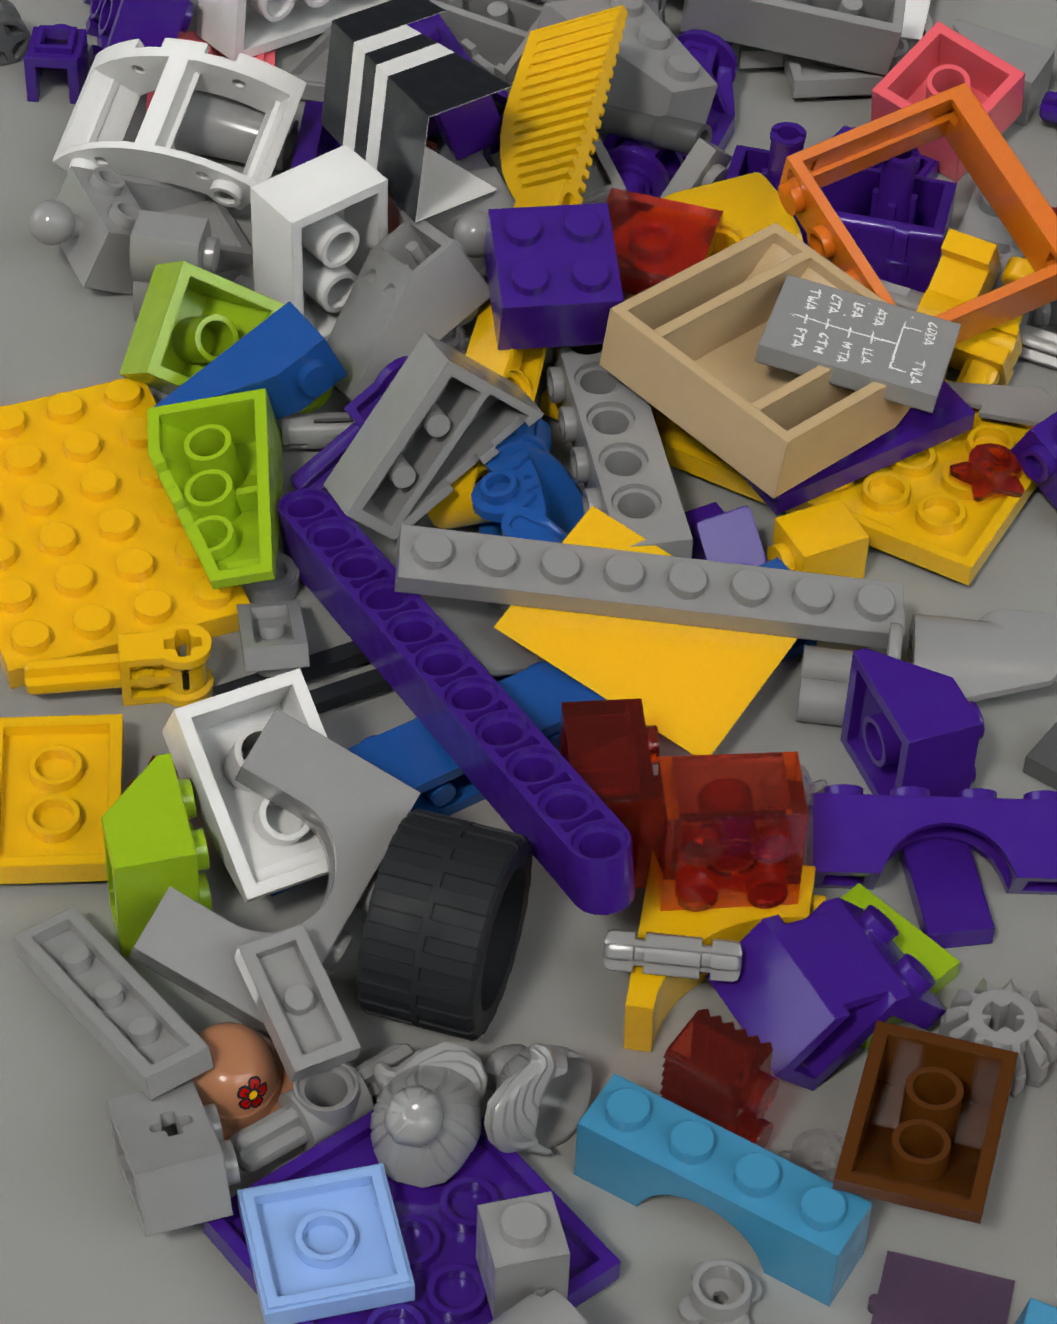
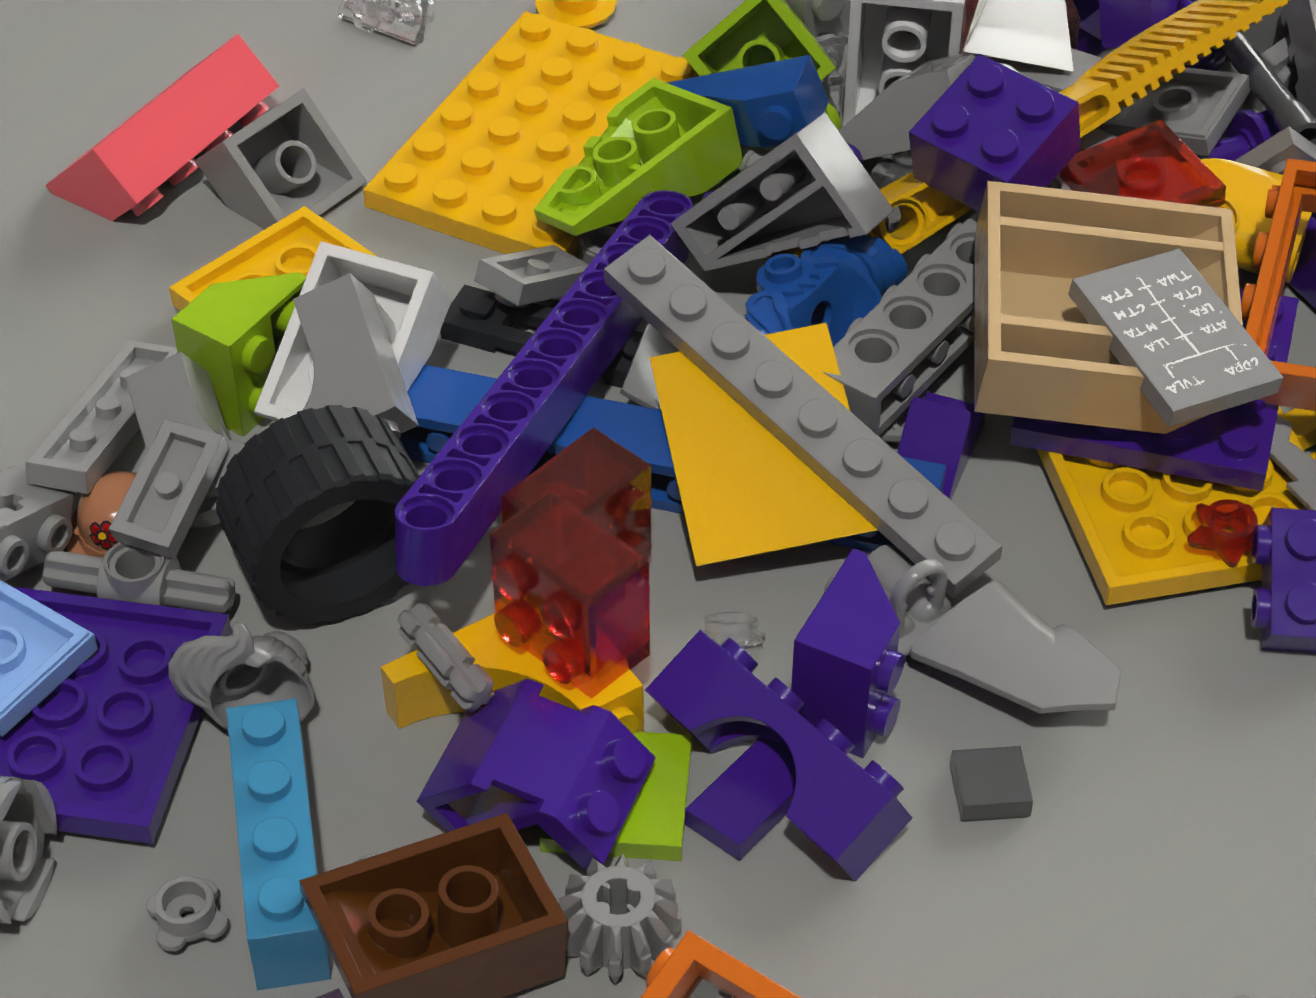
camera: 50 degrees right, 0 degrees up
(145, 668) = (437, 237): yellow connector -> none
(428, 1113) = (149, 622): light grey hair -> none
(521, 1249) = (70, 754): light grey brick -> none
(721, 1076) = (347, 770): clear red brick -> none
(821, 541) = (1008, 489): yellow brick -> none

